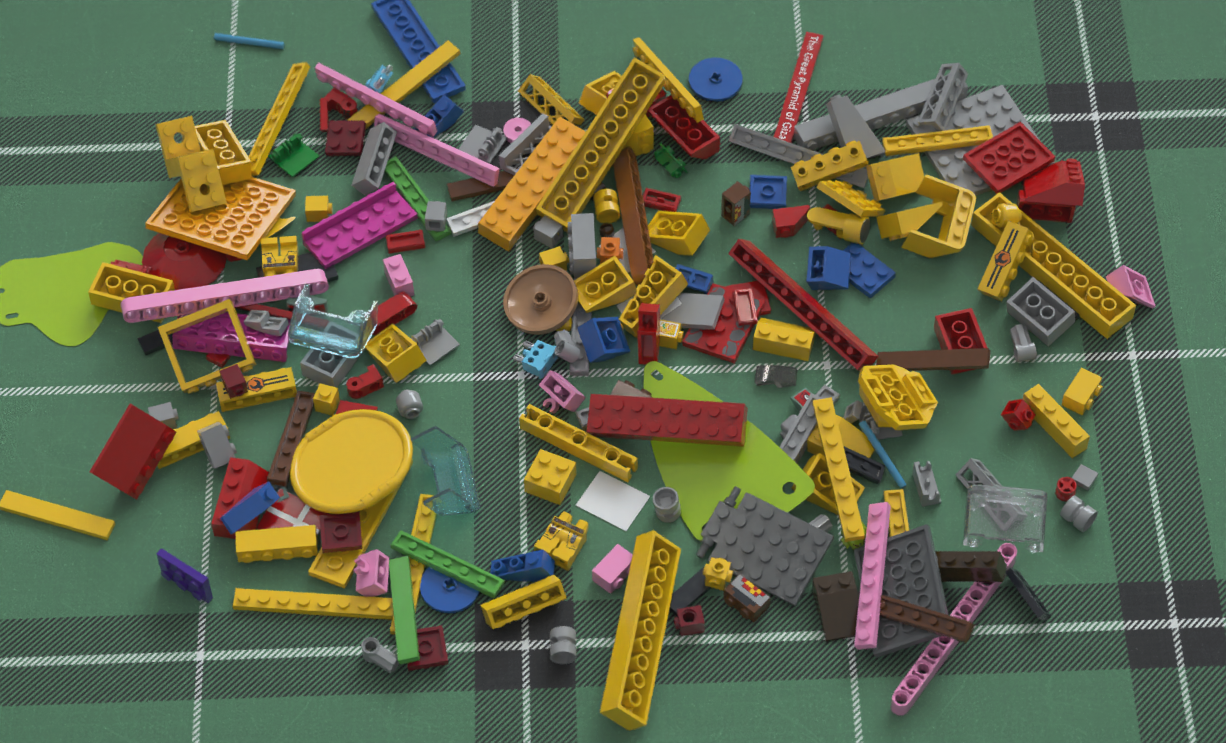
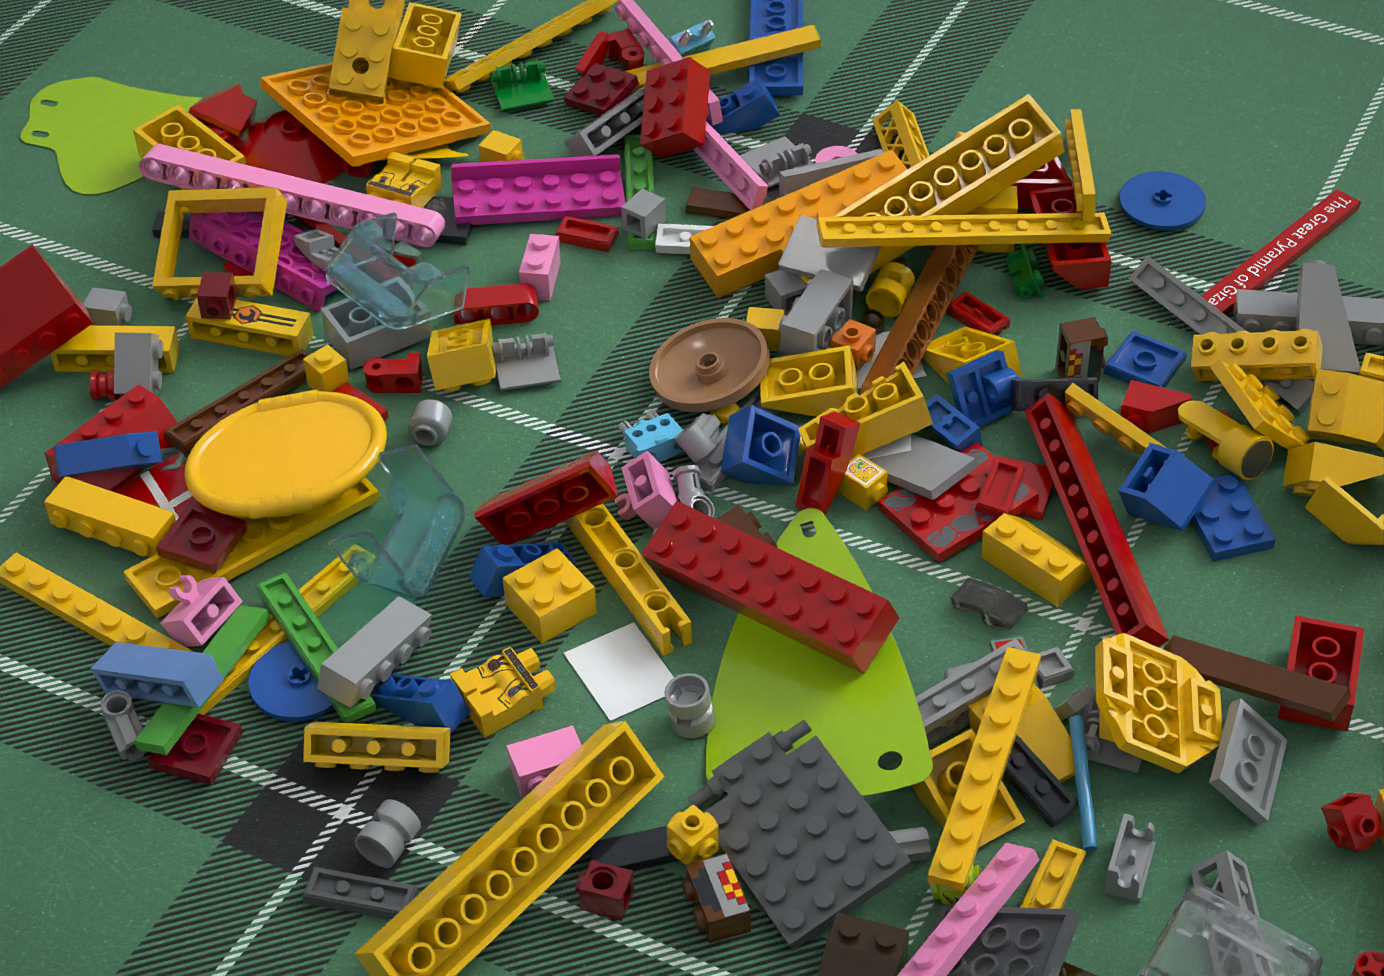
camera: 30 degrees right, 10 degrees down
(129, 251) = (227, 109): none -> red slope
(202, 465) = (102, 385): none -> red wheel
(382, 619) = (158, 674): none -> medium blue brick
(409, 137) = (675, 107): none -> red brick
(486, 552) = (374, 652): none -> light grey brick
(516, 422) = (548, 499): none -> red slope
(516, 469) = (501, 560): none -> blue slope
(568, 198) = (806, 256): none -> light grey tile
(568, 682) = (358, 893): none -> dark grey tile
(583, 383) = (689, 489): none -> light grey connector
(634, 157) = (961, 230): none -> yellow plate
(700, 248) = (983, 388): none -> blue plate
(743, 230) = (1028, 391): none -> black tile
(774, 241) = (1107, 420): none -> yellow plate
(954, 406) = (1248, 761): none -> light grey plate

